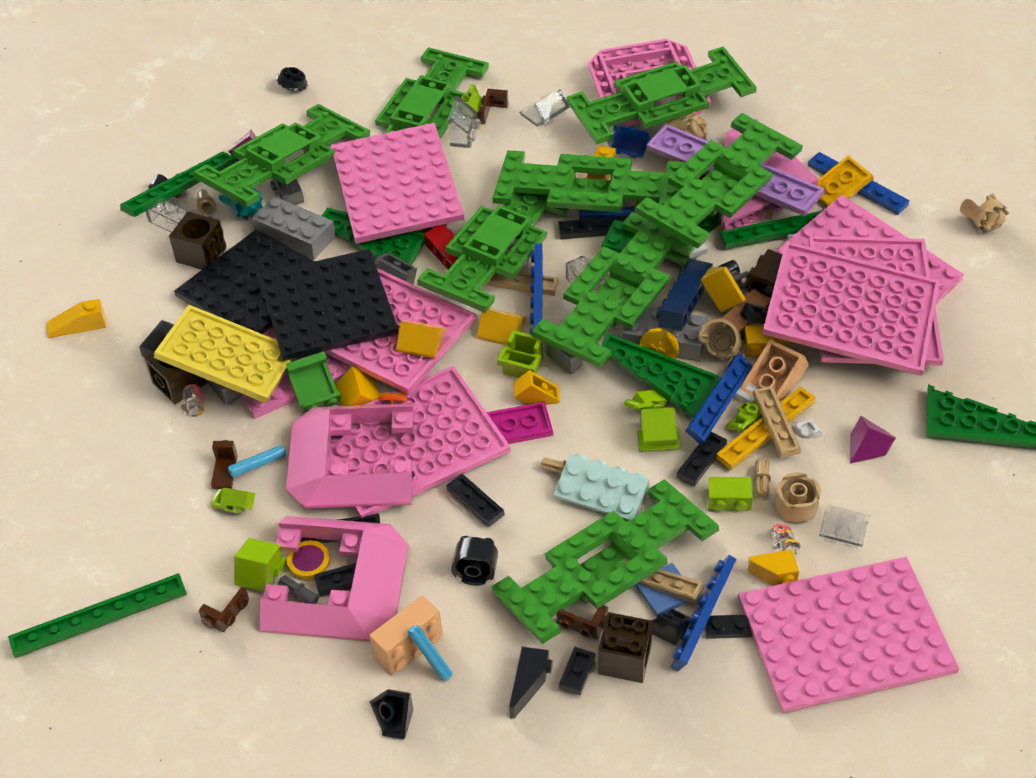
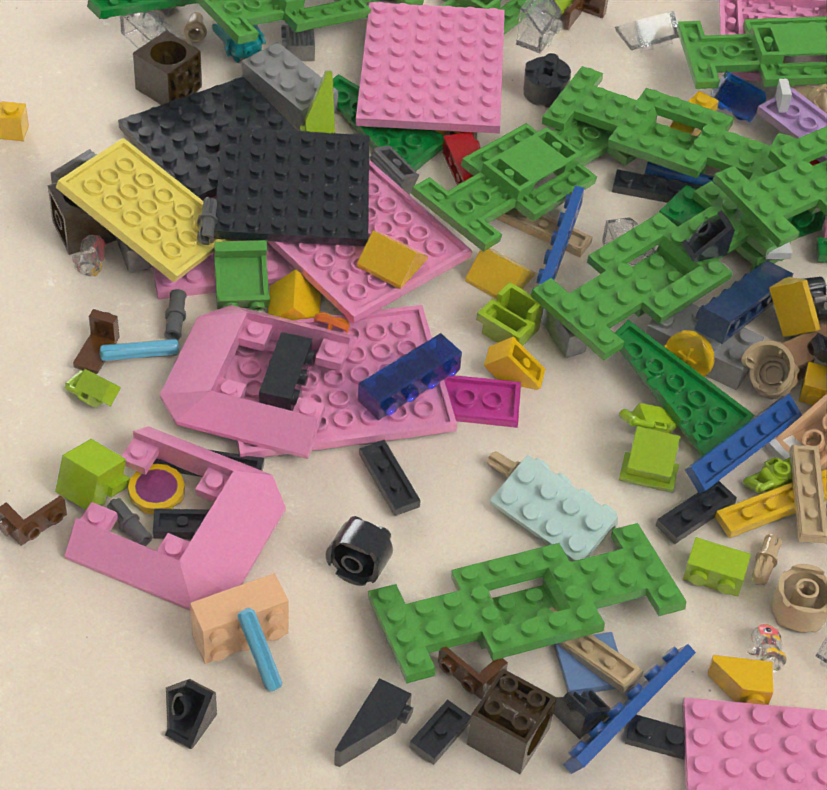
camera: 10 degrees right, 0 degrees up
(273, 426) = (175, 314): none -> dark grey pin
(274, 349) = (207, 221): none -> dark grey axle
(326, 240) = (321, 110): none -> lime slope
(374, 445) = (287, 371): none -> black brick
(464, 421) = (409, 376): none -> clear blue brick
(483, 168) = (545, 79): none -> black brick
(647, 255) = (710, 239): none -> black slope
(662, 132) = (783, 95): none -> white tile

